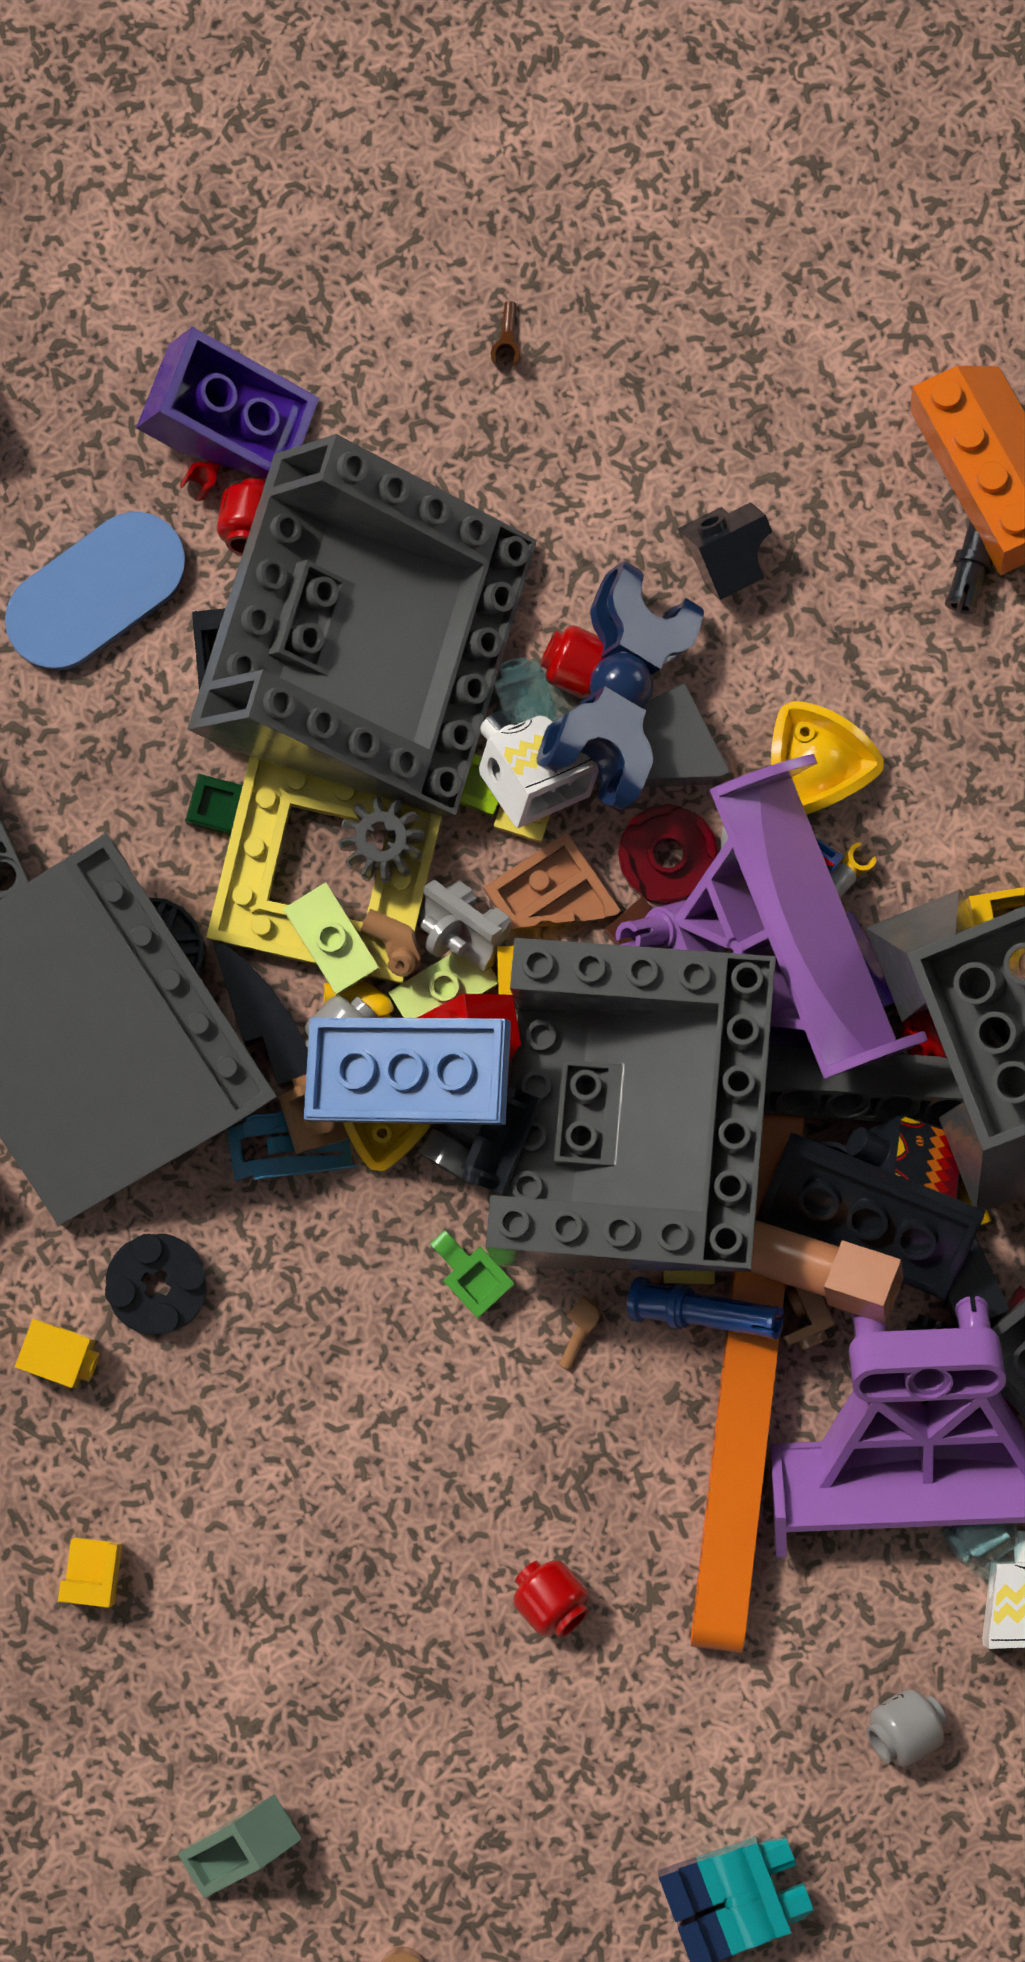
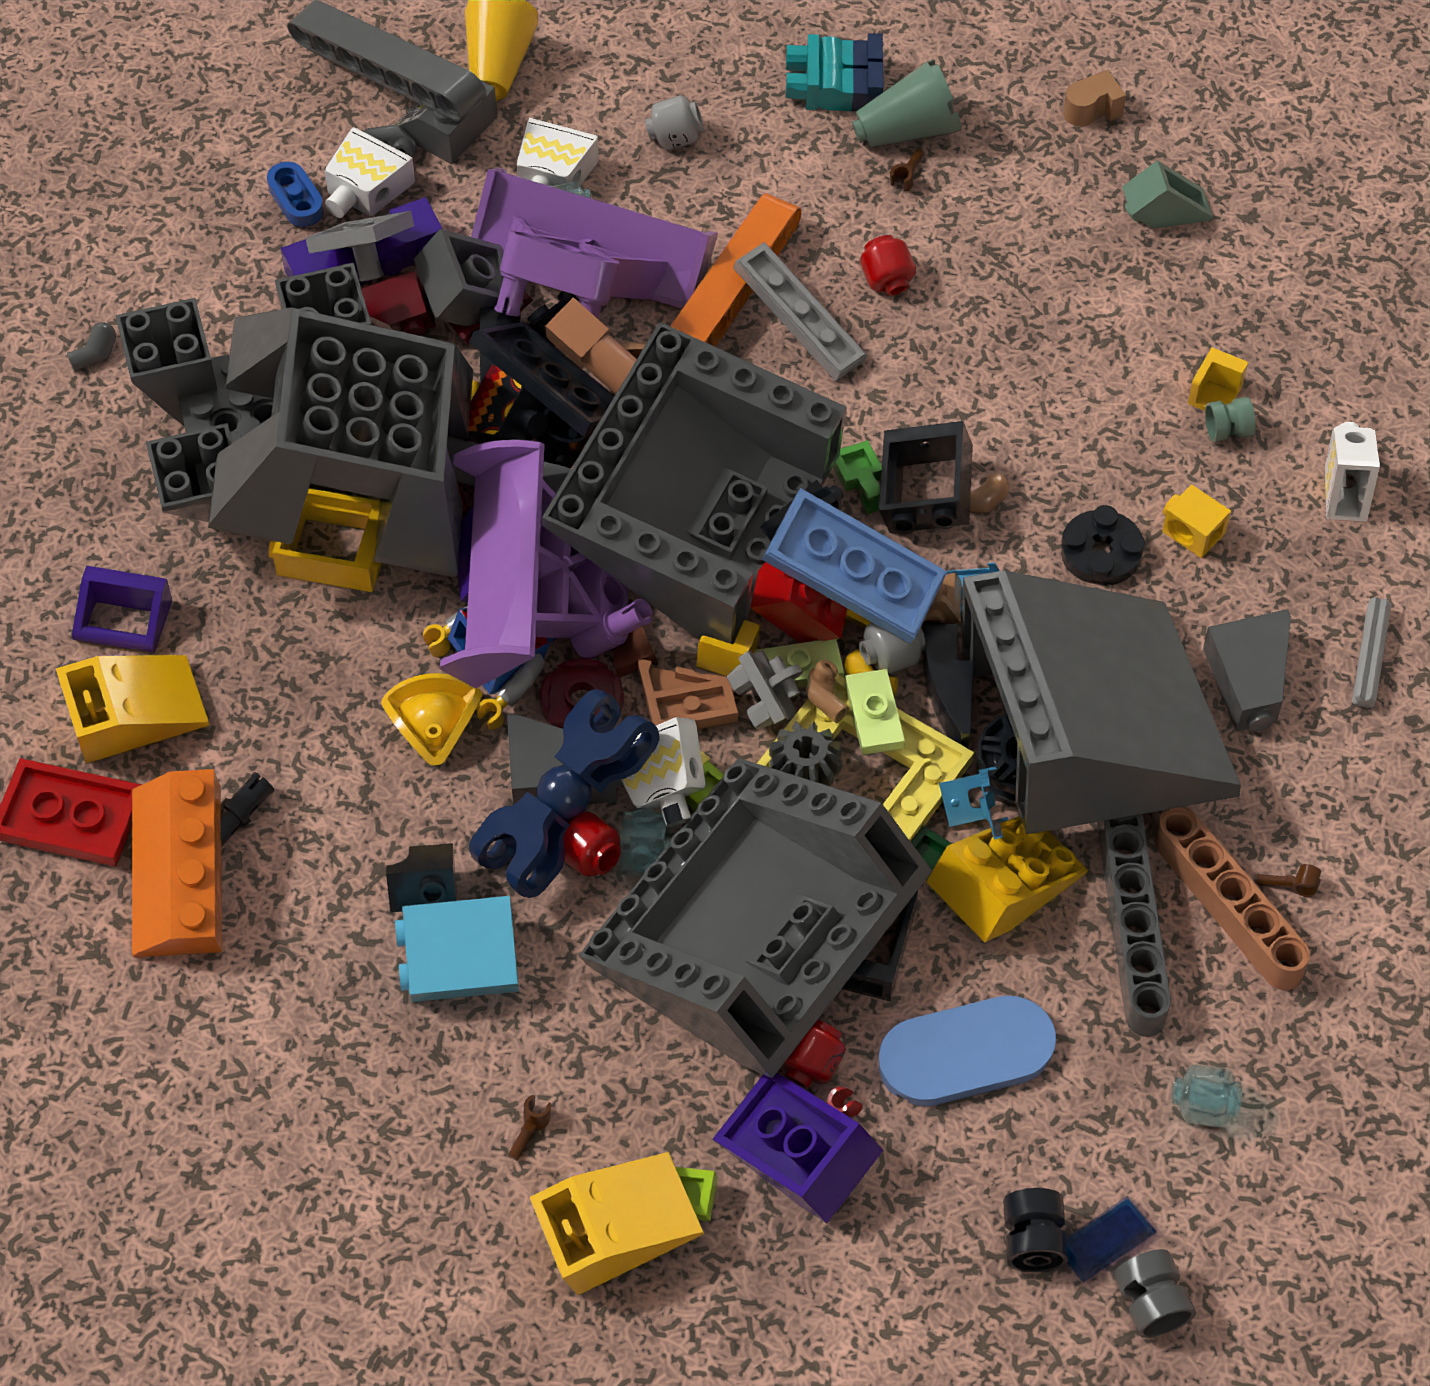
camera: 160 degrees left, 25 degrees down
(55, 1524) = (1230, 419): none -> sand green wheel
(125, 787) = (1003, 879): none -> yellow slope
(200, 866) = (958, 804): none -> dark azure piece
(314, 1296) = (989, 494): none -> medium nougat arm
(315, 323) = (700, 1189): none -> lime plate
(373, 253) = (615, 1219): none -> yellow slope
(427, 1269) = (906, 448): none -> black window
(585, 1781) = (906, 170): none -> reddish brown hand
(614, 1860) = (909, 110): none -> sand green cone
(630, 1477) = (800, 311): none -> light grey tile
(658, 483) = (458, 949): none -> medium azure brick

